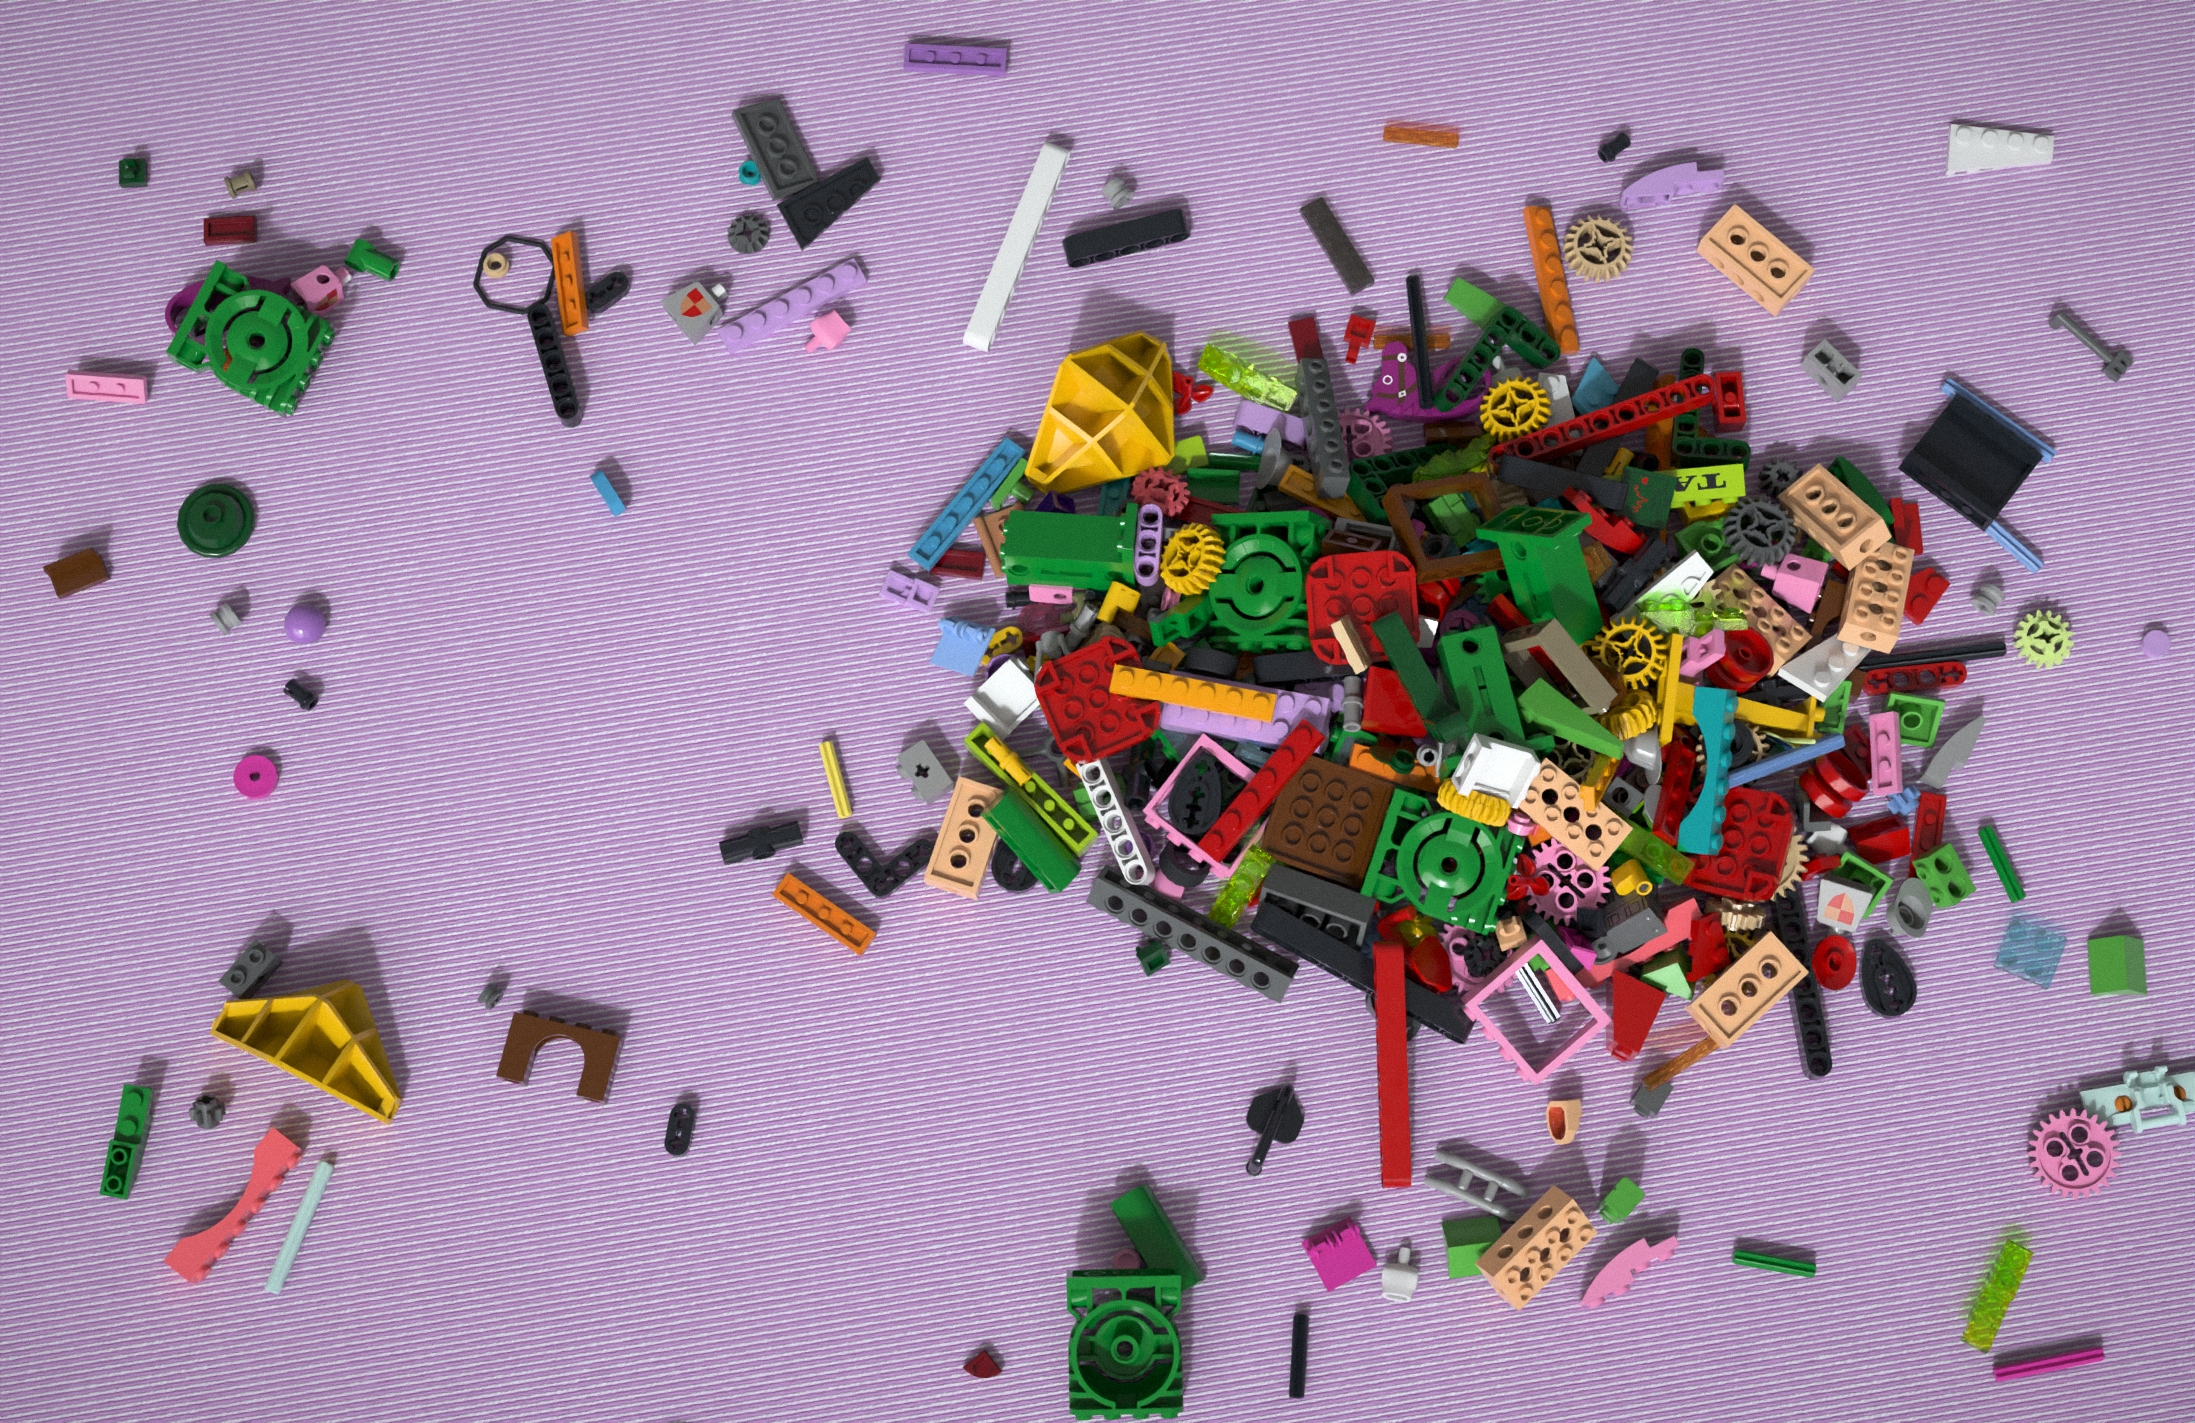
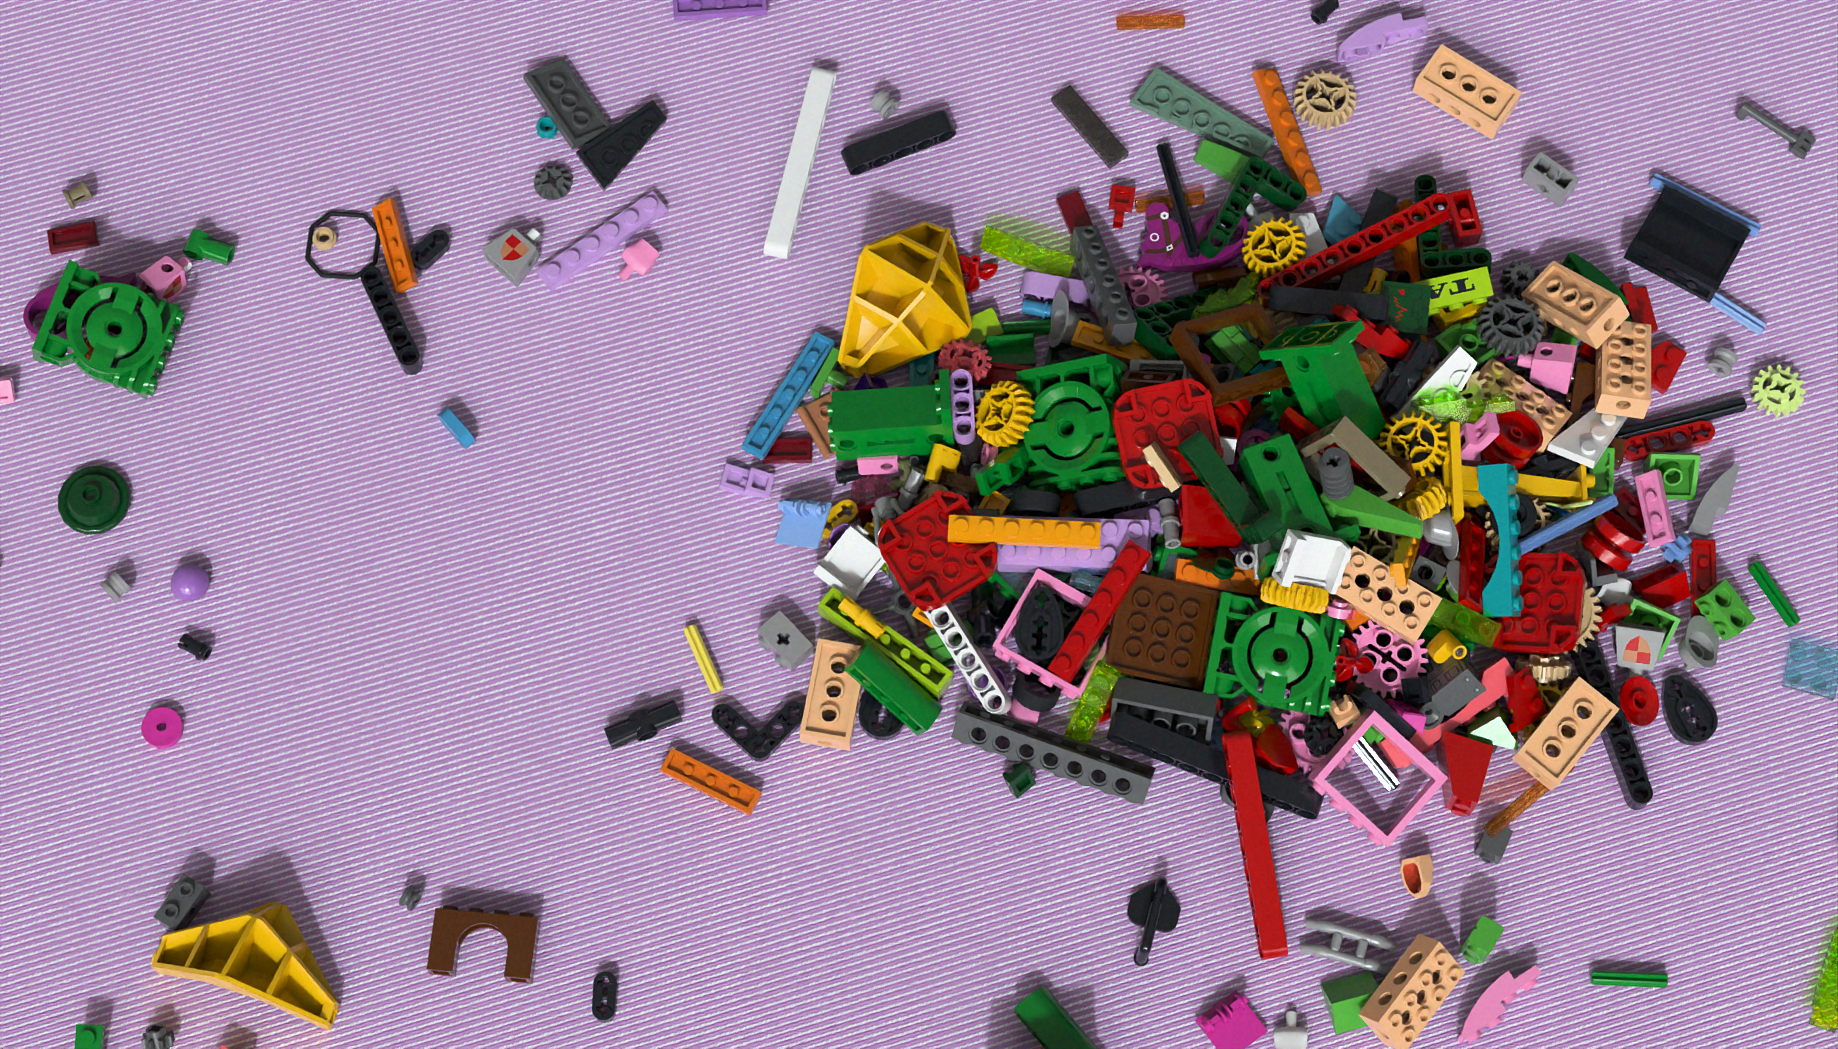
camera: 10 degrees left, 5 degrees down
(1447, 241) = (1182, 106): none -> sand green wing
(1537, 678) = (1336, 473): none -> dark grey piece

